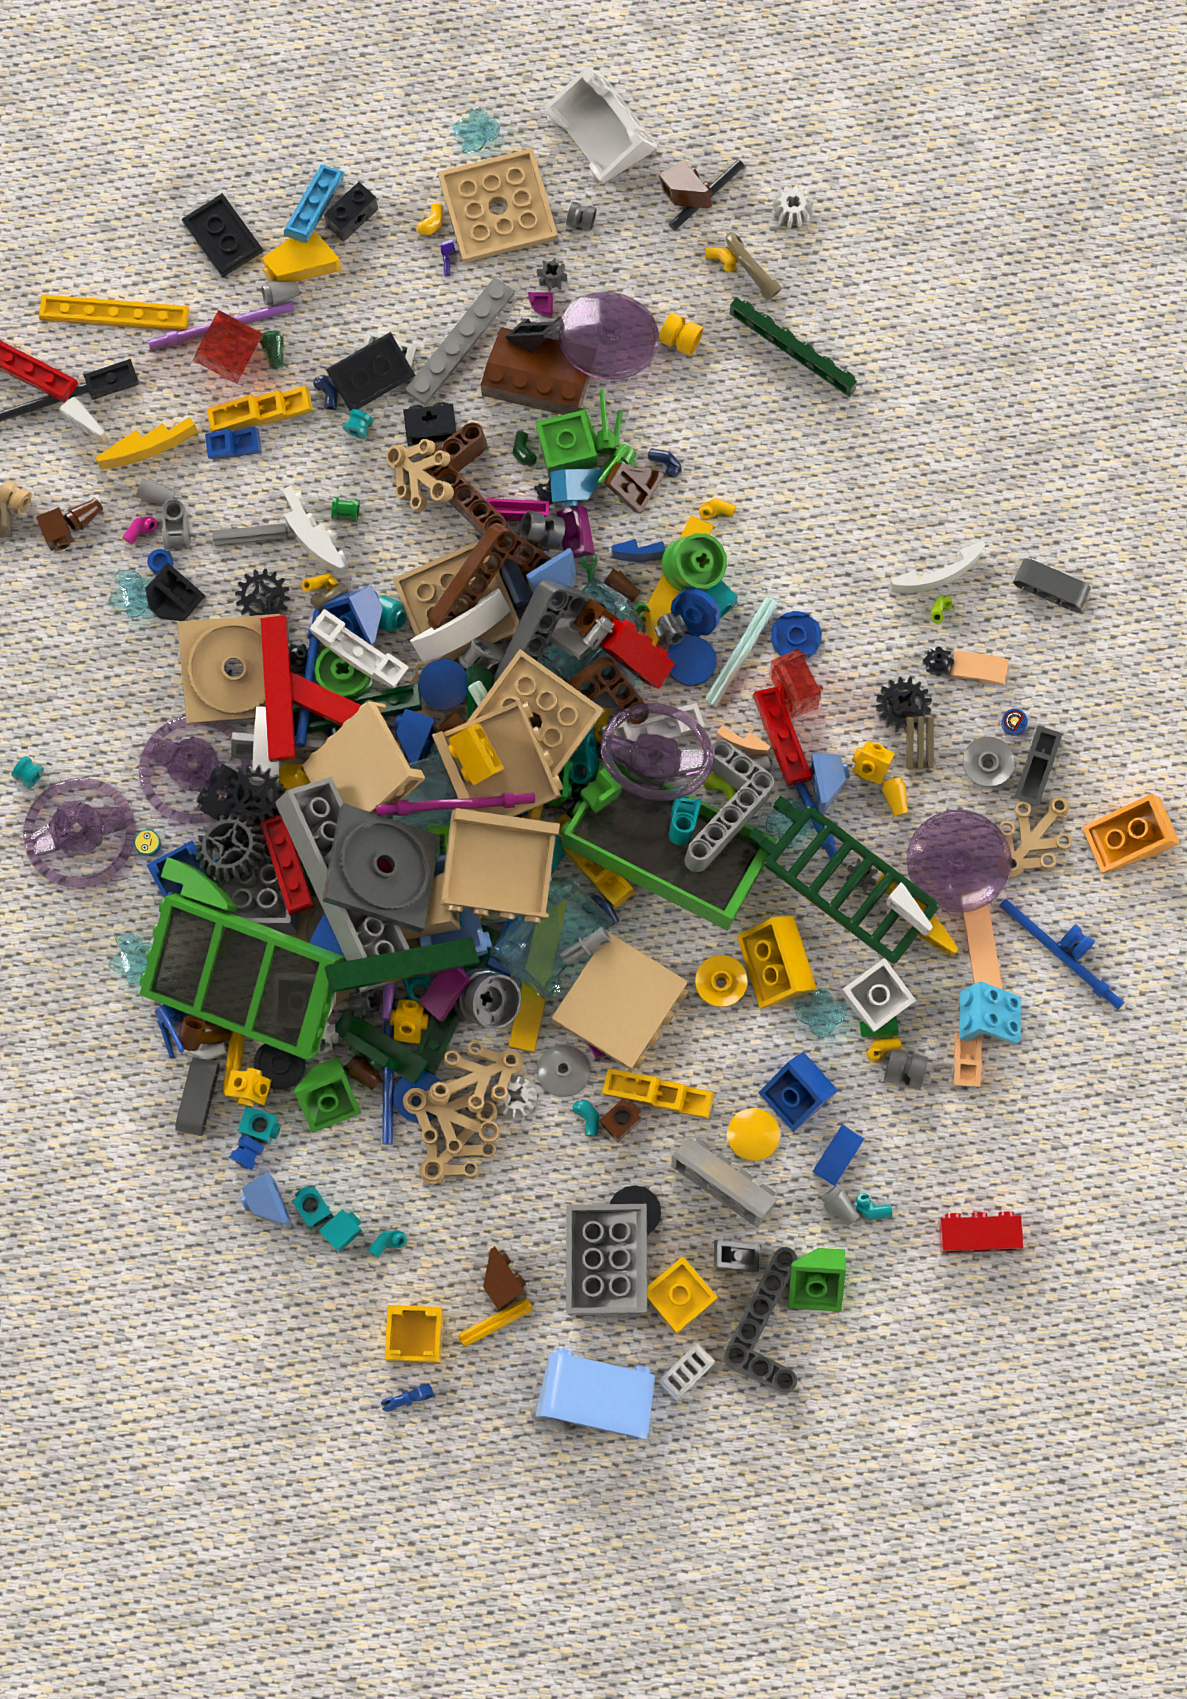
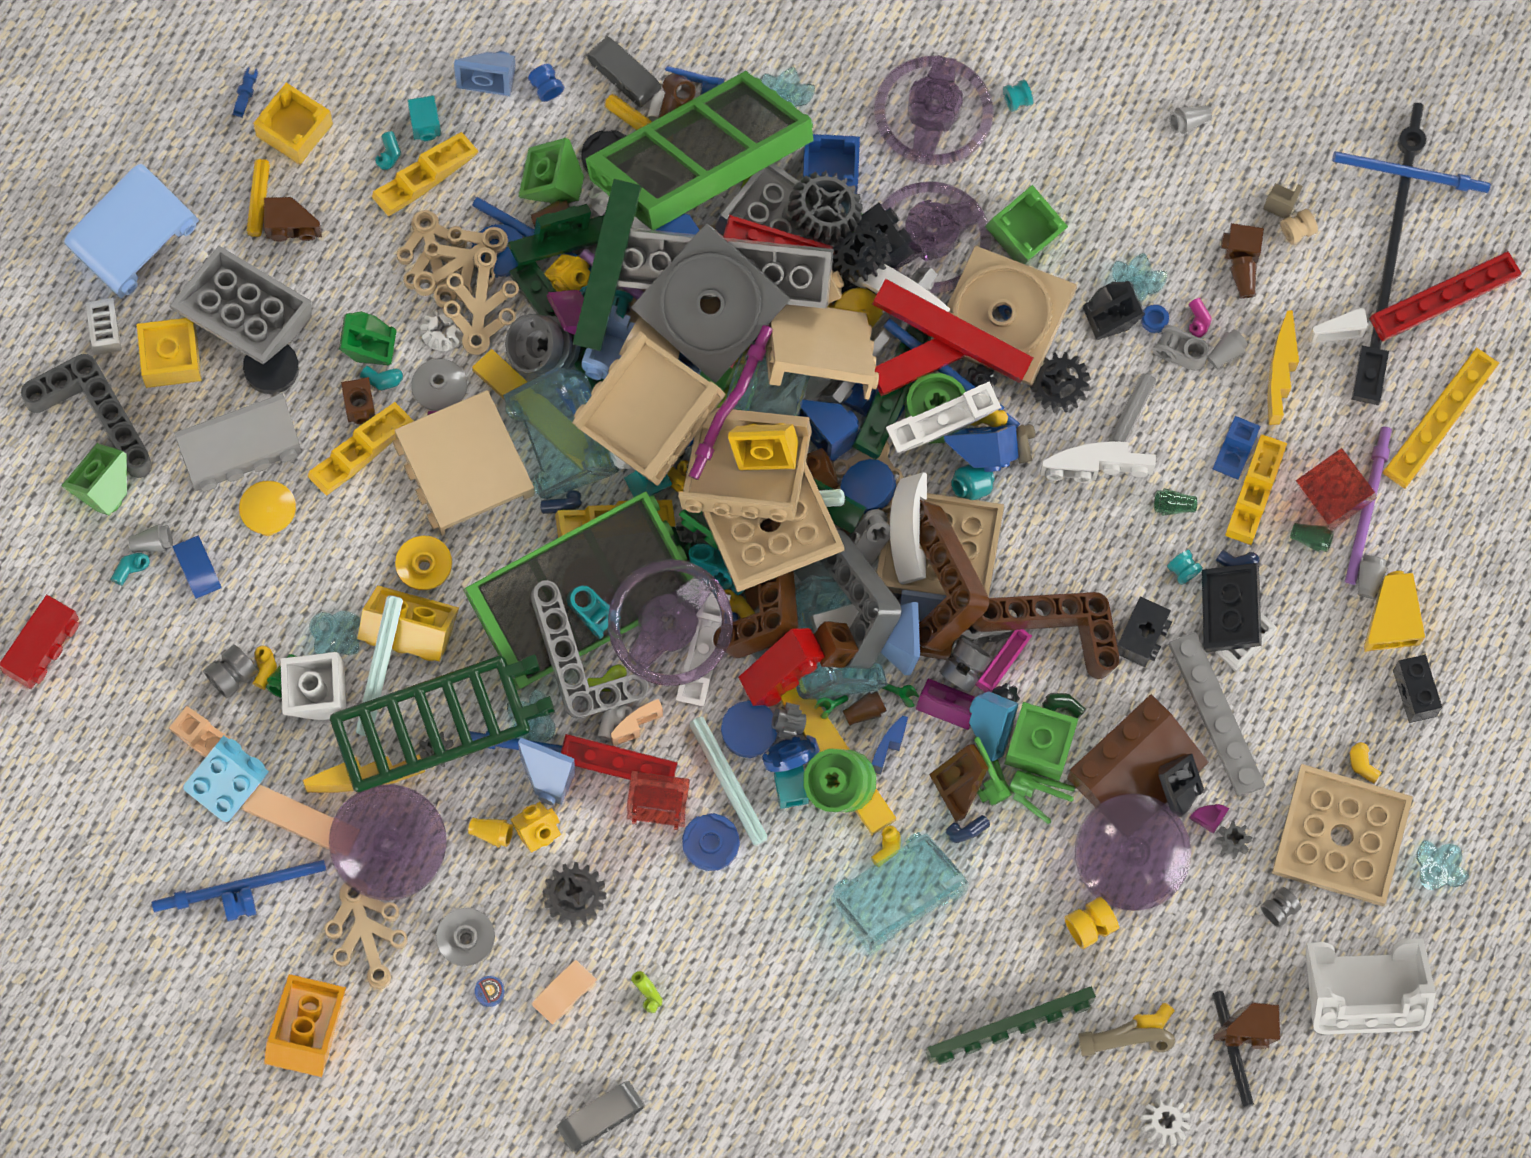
camera: 115 degrees right, 5 degrees down
(144, 695) = (1026, 226): none -> bright green container
(147, 842) = (886, 160): tile -> none
(197, 884) = (806, 159): bright green slope -> none
(222, 235) = (1466, 560): black tile -> none
(248, 1087) = (600, 111): yellow brick -> none
(249, 1120) = (566, 95): teal brick -> none
(310, 463) = (1173, 502): none -> clear green cone
(313, 203) = (1445, 656): dark azure tile -> none
(317, 1217) = (453, 98): teal brick -> none
(319, 582) = (1045, 438): yellow arm -> none
(345, 509) = (1103, 506): green bush -> none
(389, 1199) = (425, 174): none -> yellow slope
(399, 459) = (1125, 583): tan plant -> none
(447, 249) = (1323, 757): dark purple hand -> none
(561, 1148) = (367, 339): none -> green slope
(585, 946) = (533, 459): light grey axle -> none
(599, 632) = (818, 636): light grey pin -> none
(601, 791) = (665, 546): bright green panel -> none
(736, 1256) = (170, 417): dark grey slope -> none
(749, 473) = (898, 891): none -> clear light blue windscreen
(798, 1091) = (277, 568): blue slope -> none
(822, 955) = (381, 654): none -> light aqua axle
(906, 907) = (367, 751): white slope -> none
(911, 584) = (690, 981): white slope -> none
(920, 742) = (509, 874): dark tan tile -> none
(938, 661) = (596, 956): black plant -> none
(1038, 765) = (431, 982): dark grey slope -> none

